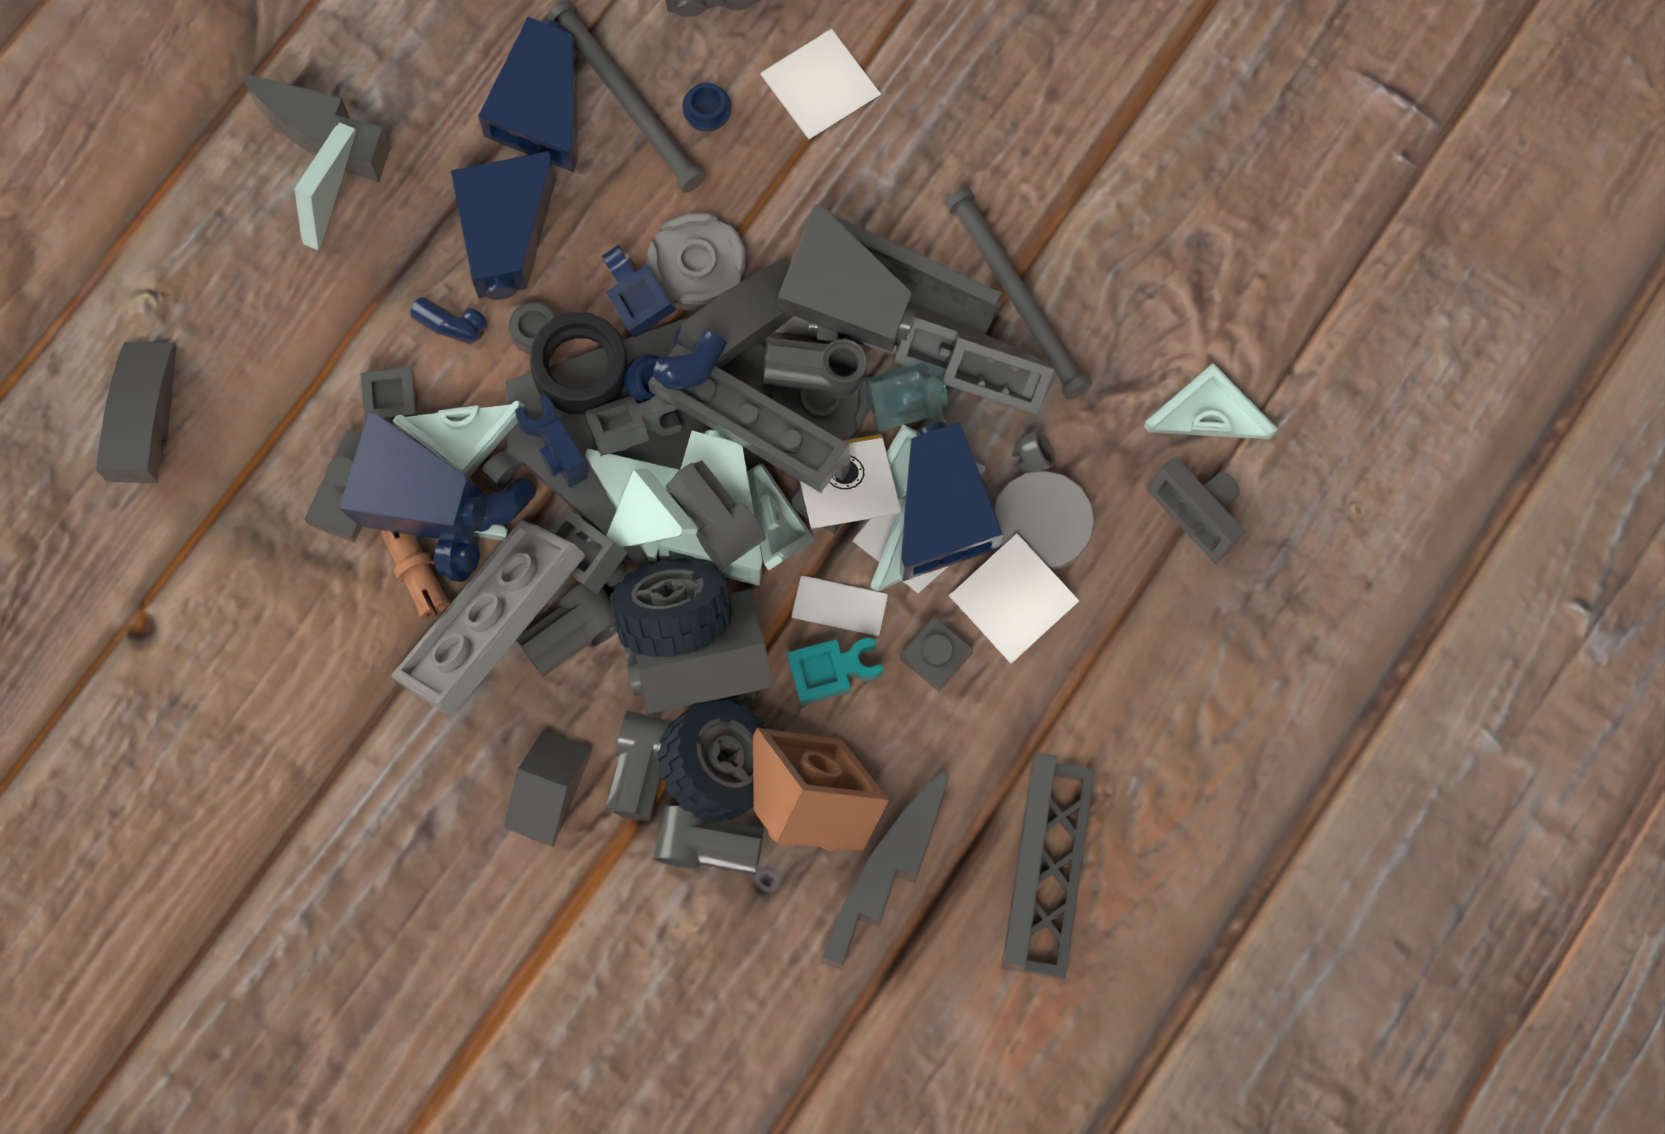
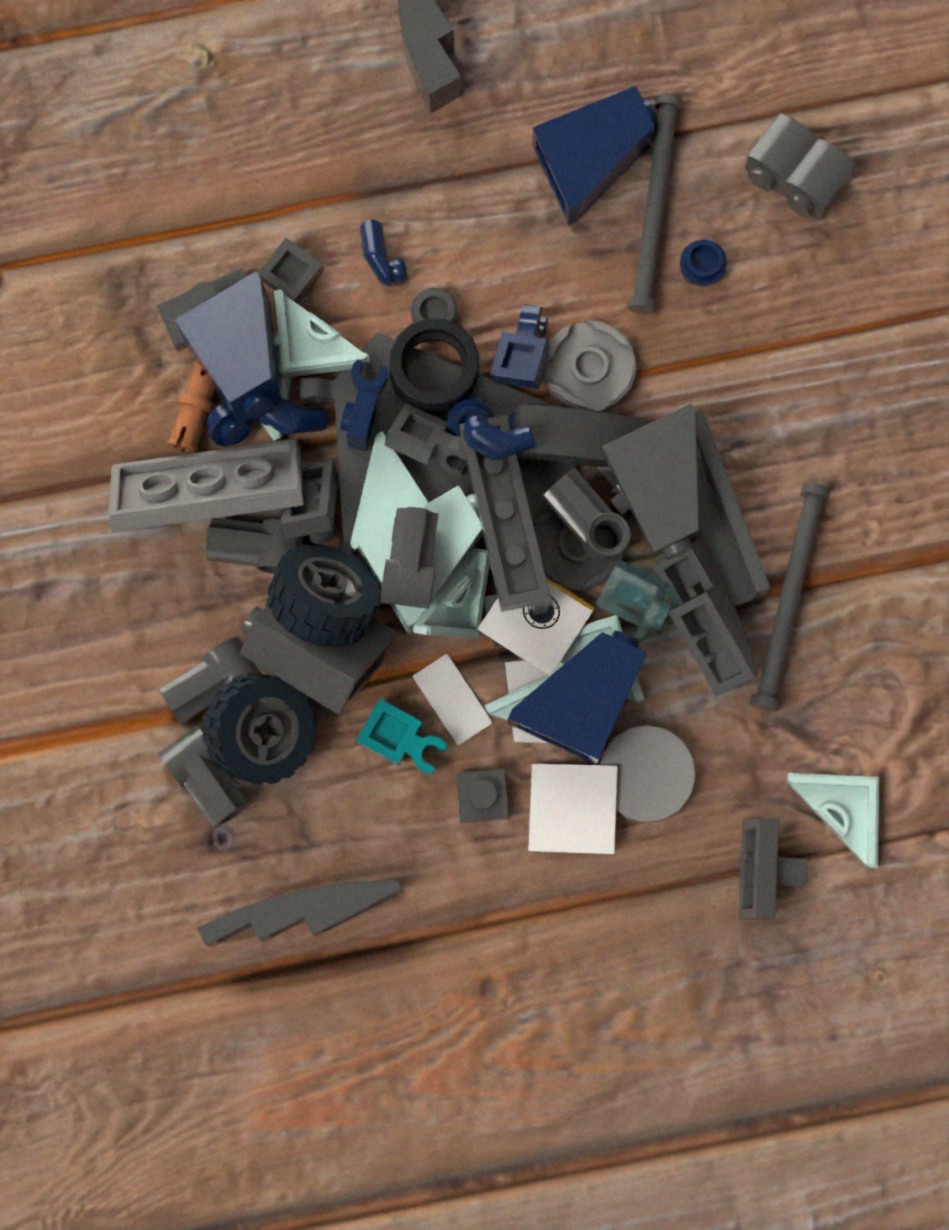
camera: 50 degrees right, 5 degrees up
(137, 413) = (118, 130): dark grey slope -> none
(320, 185) = (379, 80): light aqua tile -> none
(503, 220) = (482, 217): dark blue slope -> none
(546, 787) = (139, 636): dark grey slope -> none
(648, 513) = (368, 516): light aqua tile -> none
(813, 791) = (300, 810): nougat slope -> none
(820, 83) = (802, 317): white sticker -> none
(1029, 862) = (400, 999): dark grey fence -> none
(1035, 452) = (688, 721): dark grey hinge -> none

